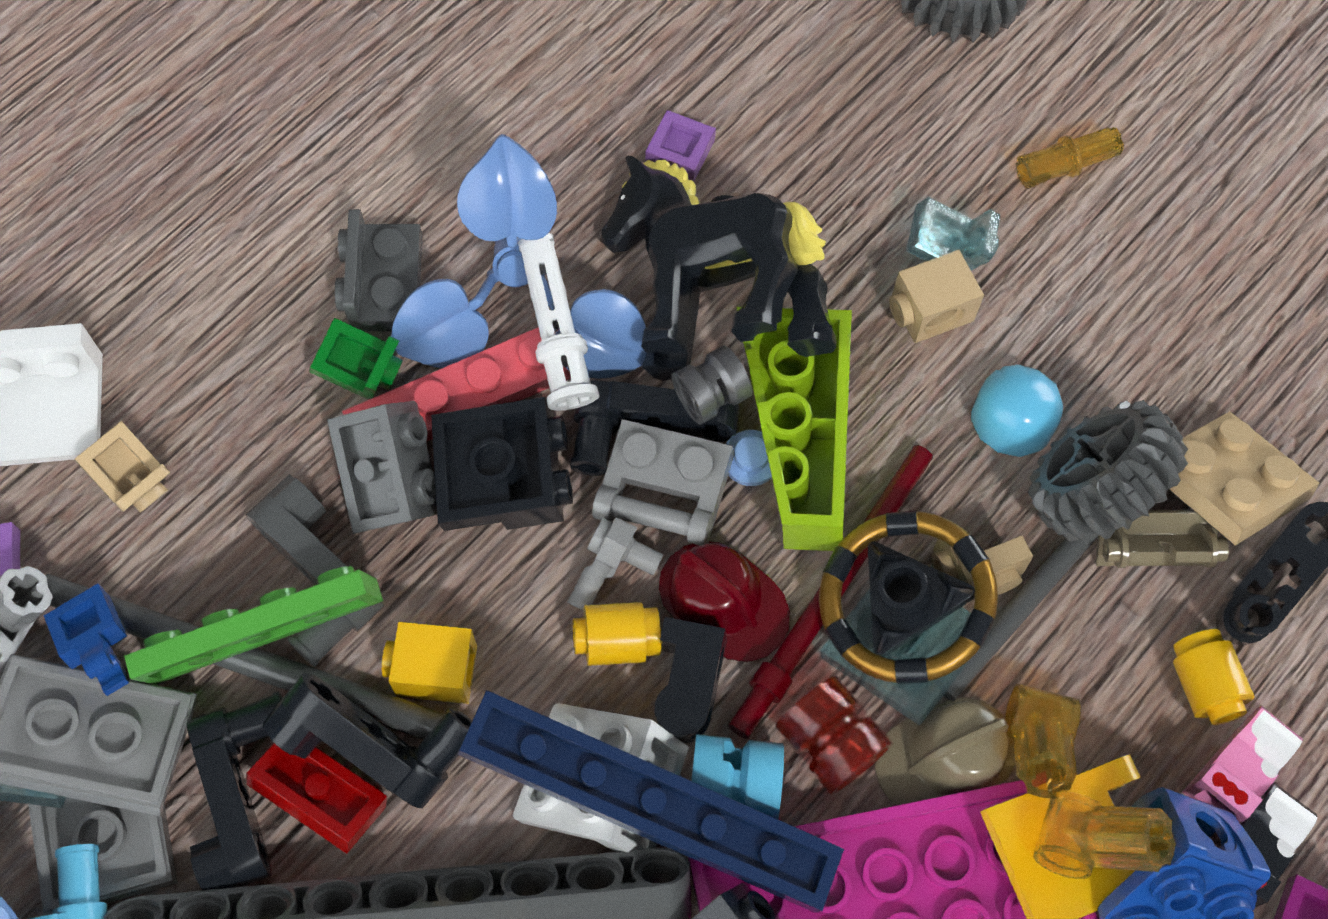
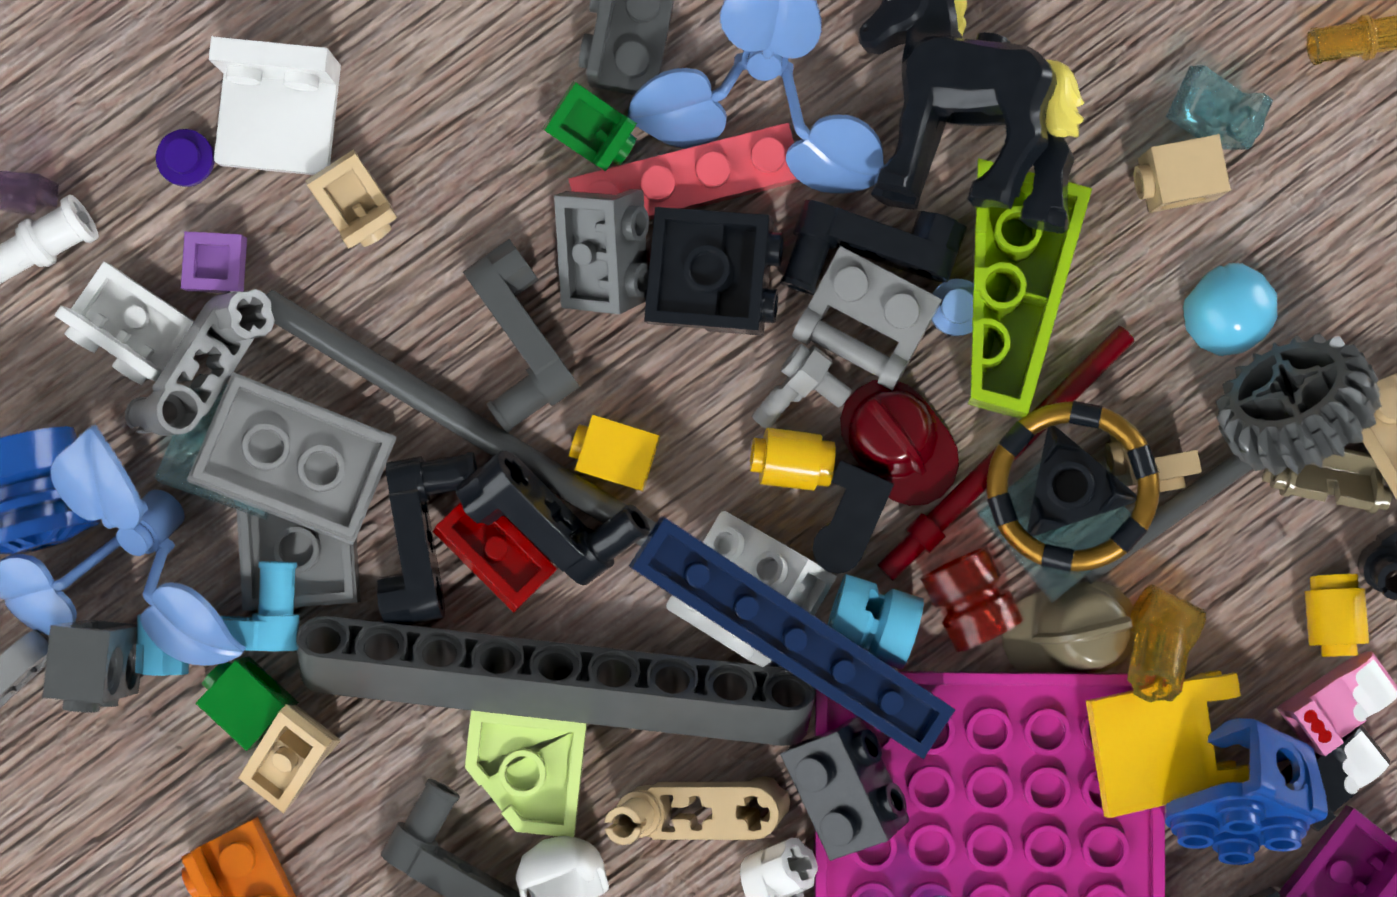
camera: 15 degrees right, 20 degrees up
(84, 635) = (302, 365): blue plate -> none
(232, 633) = (435, 395): bright green plate -> none
(562, 349) = (789, 172): white pin -> none
(712, 384) = (935, 240): flat silver wheel -> none
(1086, 835) = (1174, 747): clear yellow piece -> none

